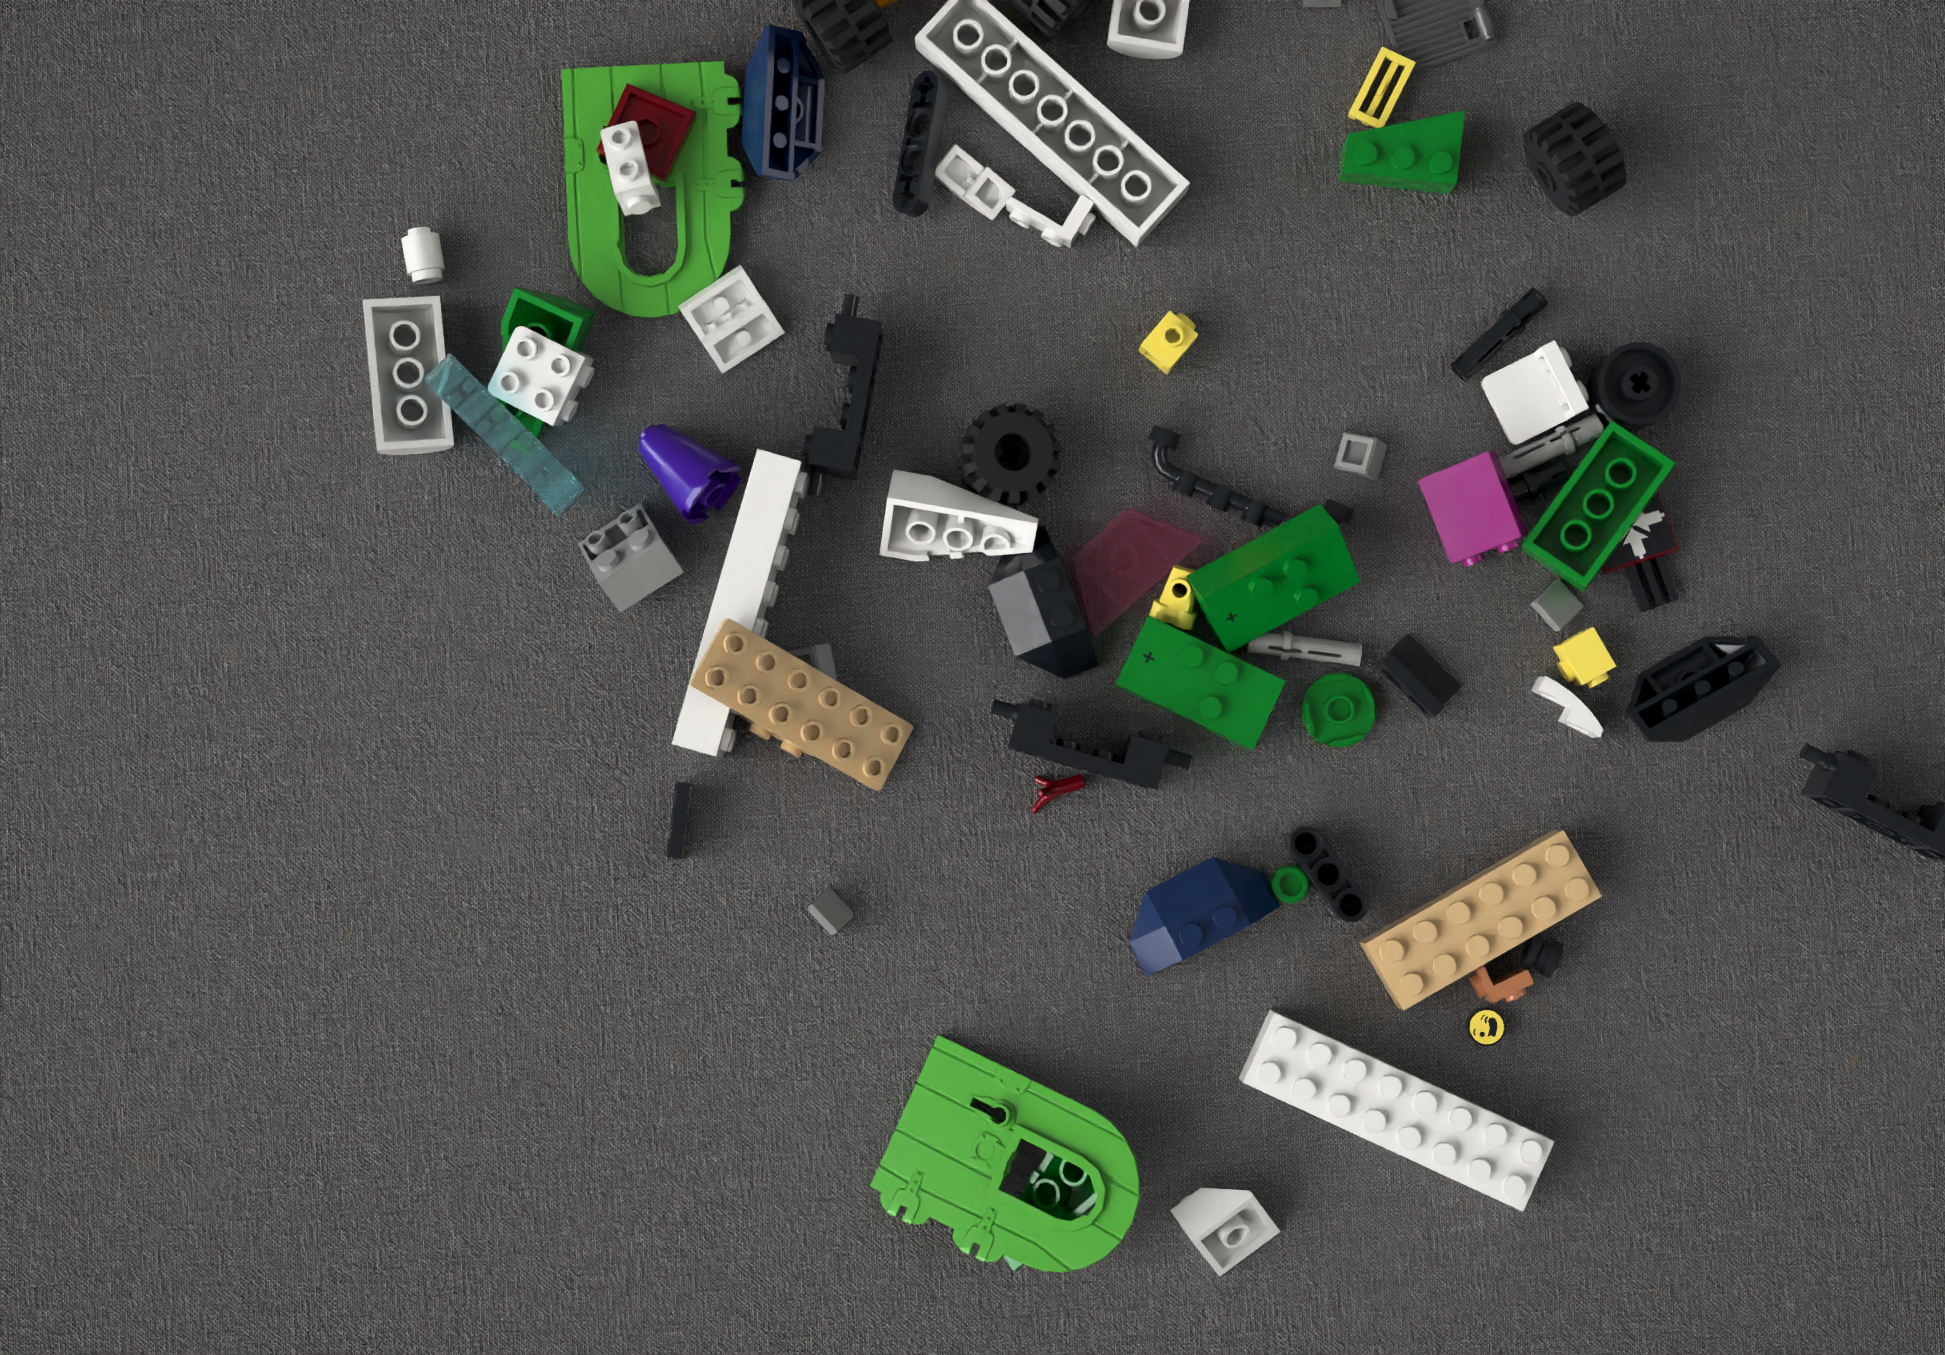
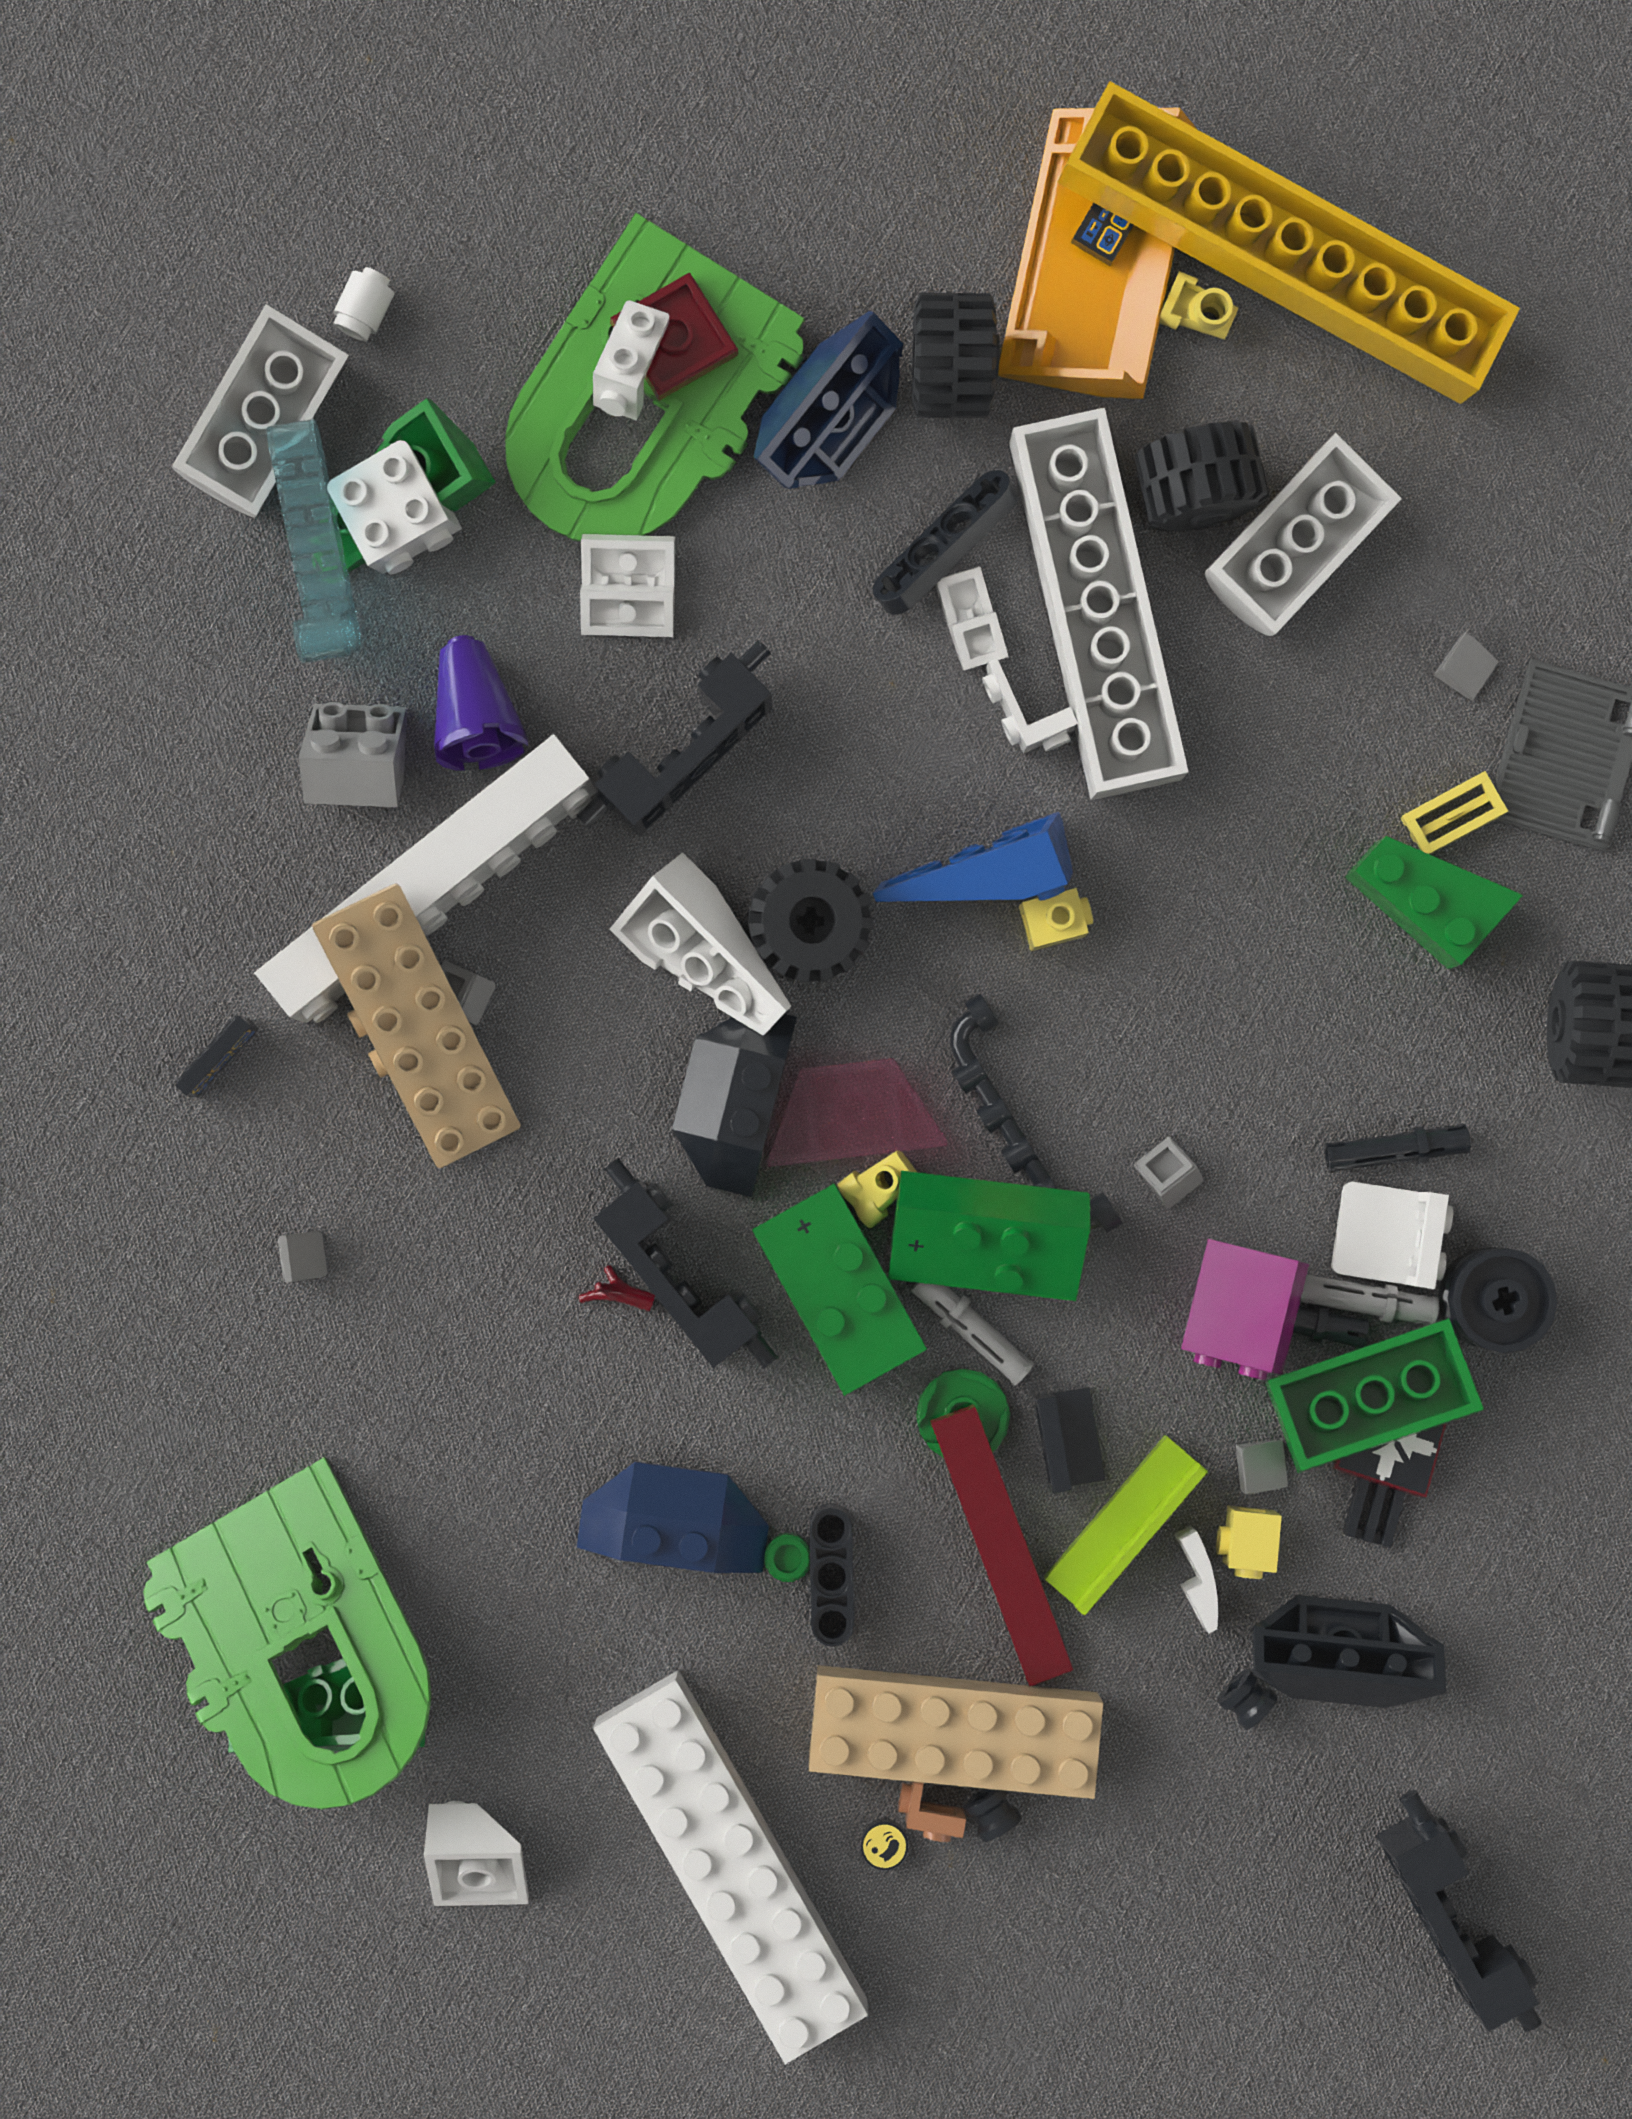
camera: 30 degrees right, 0 degrees up
(1120, 323) = (1018, 866): none -> blue wedge
(1424, 776) = (1001, 1545): none -> dark red tile
(1495, 705) = (1125, 1524): none -> lime panel
(1655, 763) = (1247, 1699): none -> black wheel

